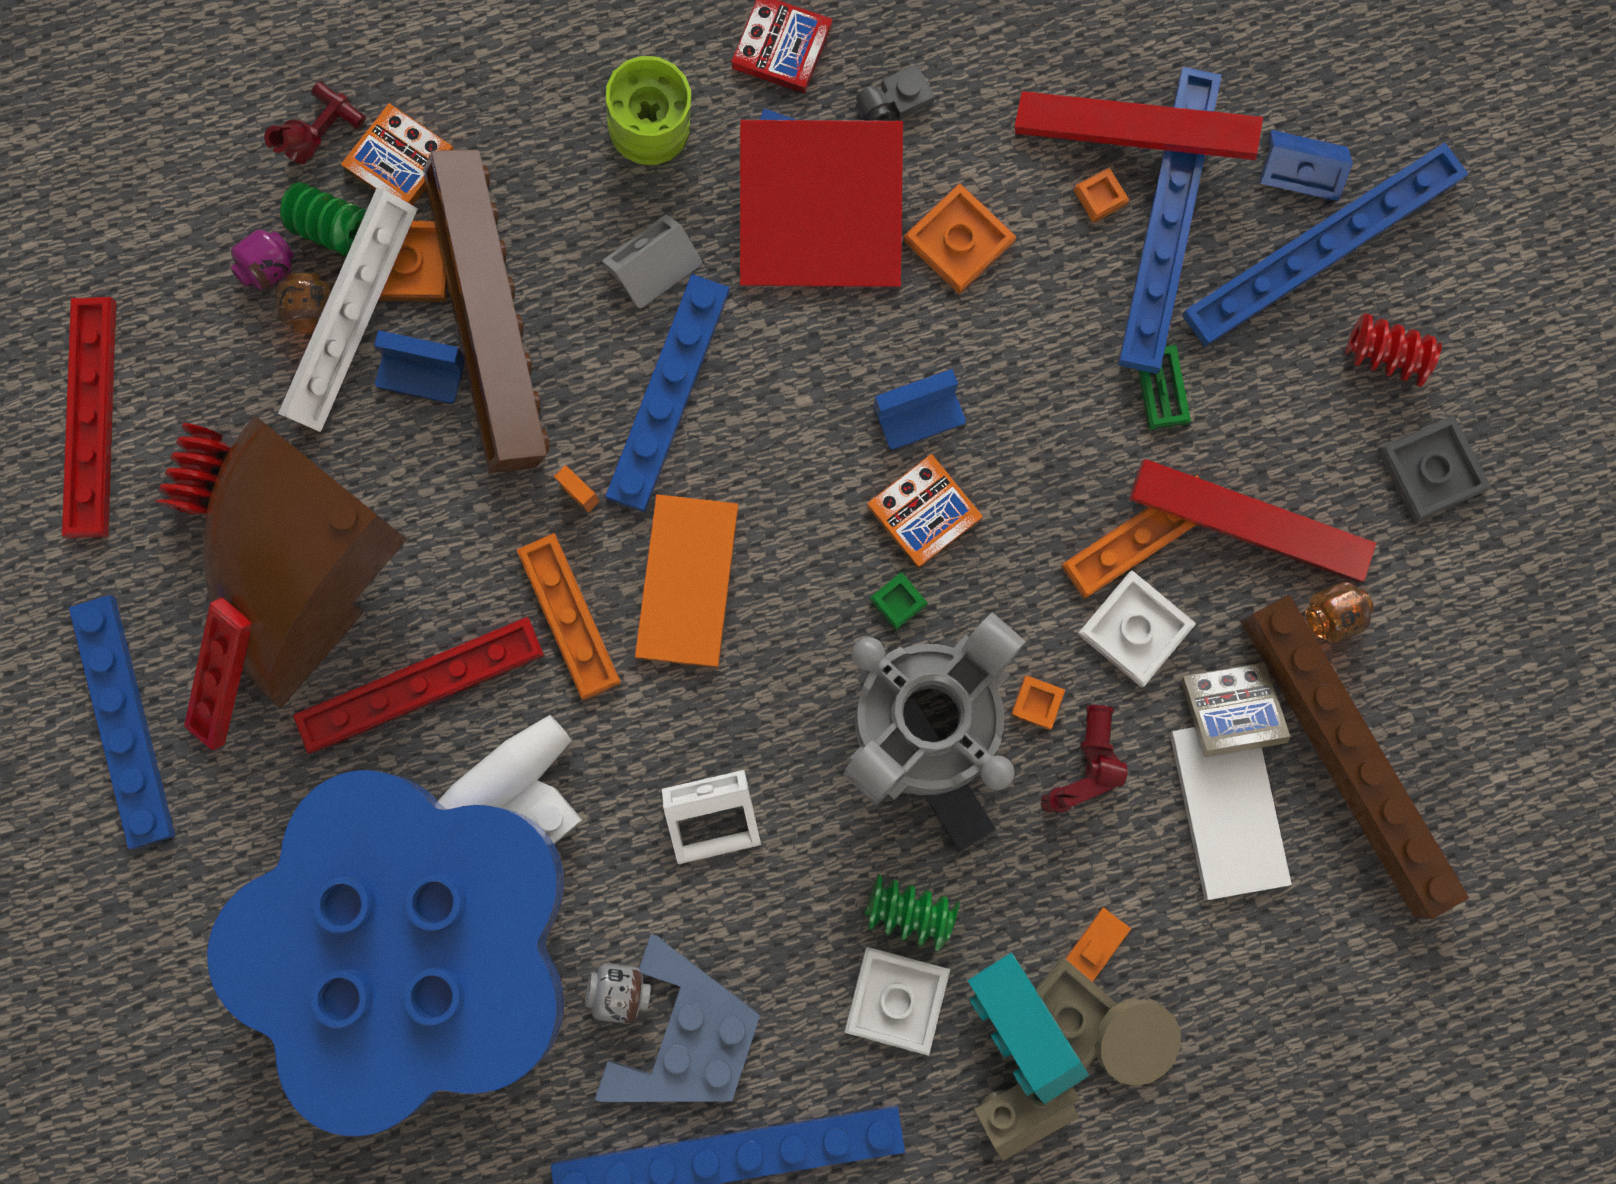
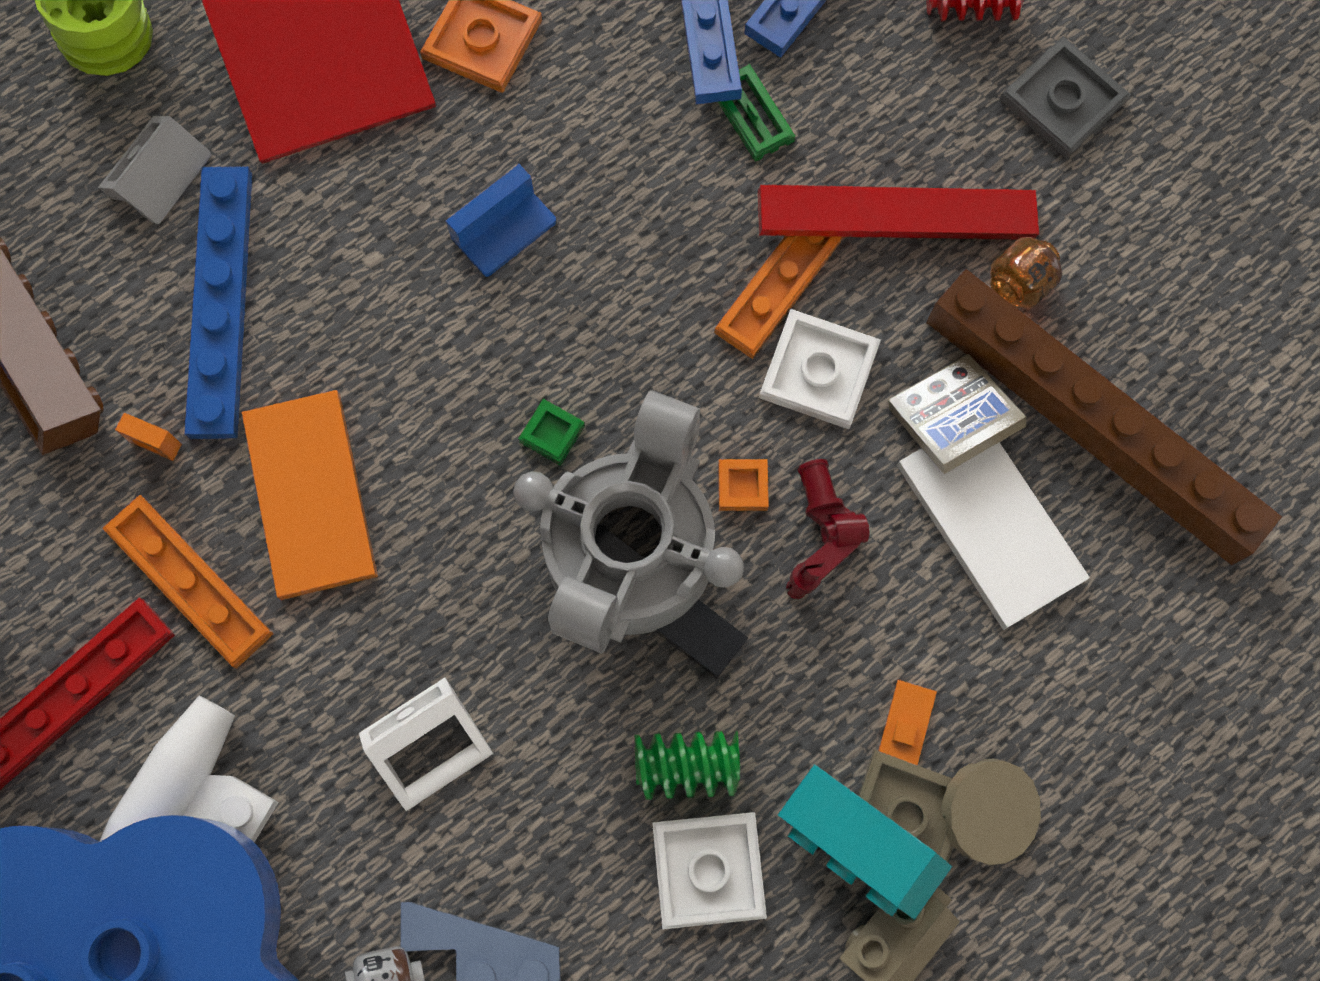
camera: 20 degrees left, 5 degrees down
(924, 511) = (545, 327): tile -> none

